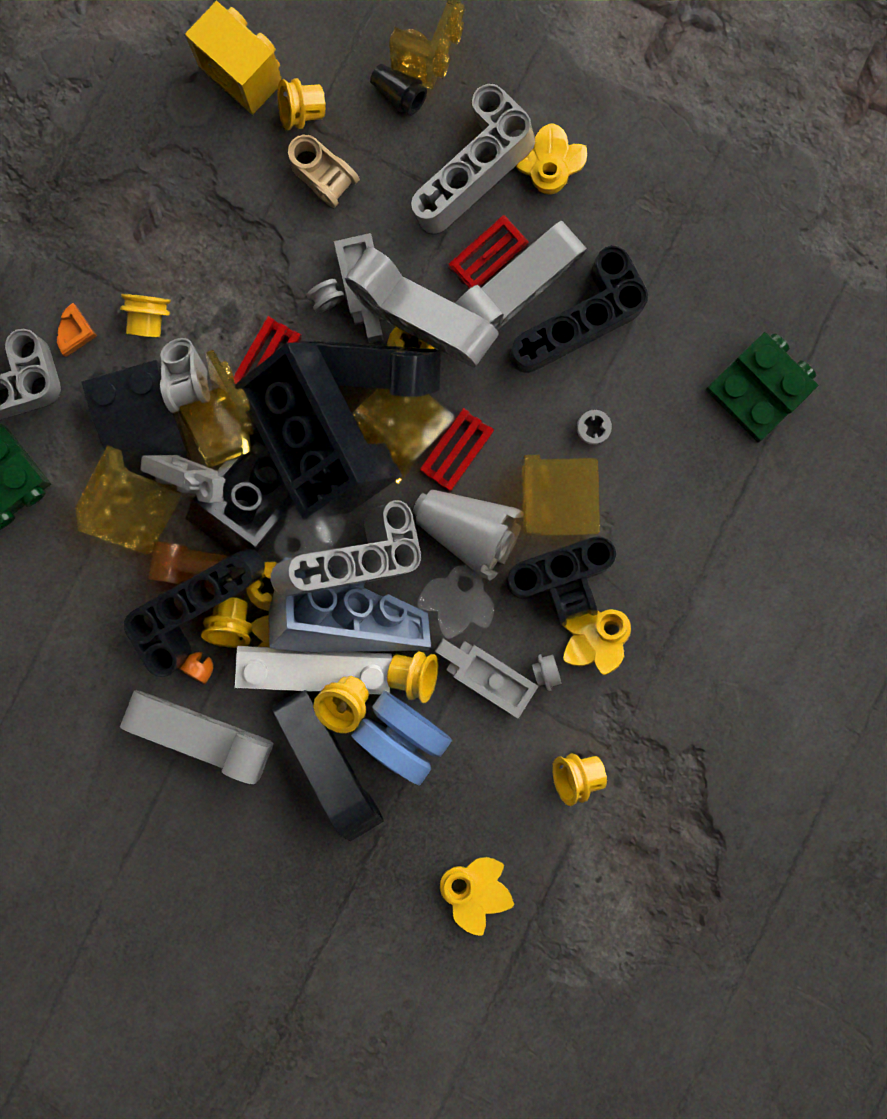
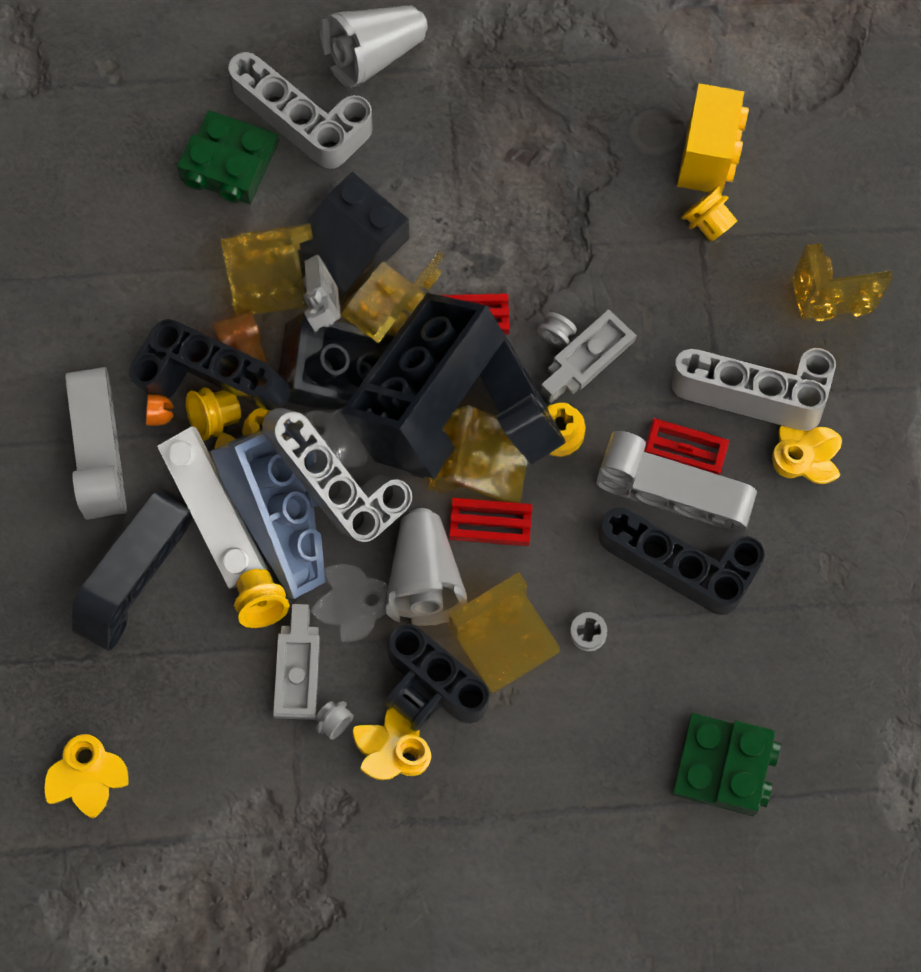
camera: 60 degrees right, 15 degrees down
(73, 331) = (394, 148): orange tile -> none
(144, 314) = (444, 193): yellow piece -> none
(182, 375) = (408, 249): light grey piece -> none
(326, 174) = (664, 268): tan piece -> none
(342, 704) = (195, 543): yellow piece -> none
(397, 743) = (193, 614): medium blue wheel -> none
(399, 88) = (780, 289): black cone -> none
(419, 310) = (589, 401): light grey beam -> none
(578, 777) = (250, 804): yellow piece -> none

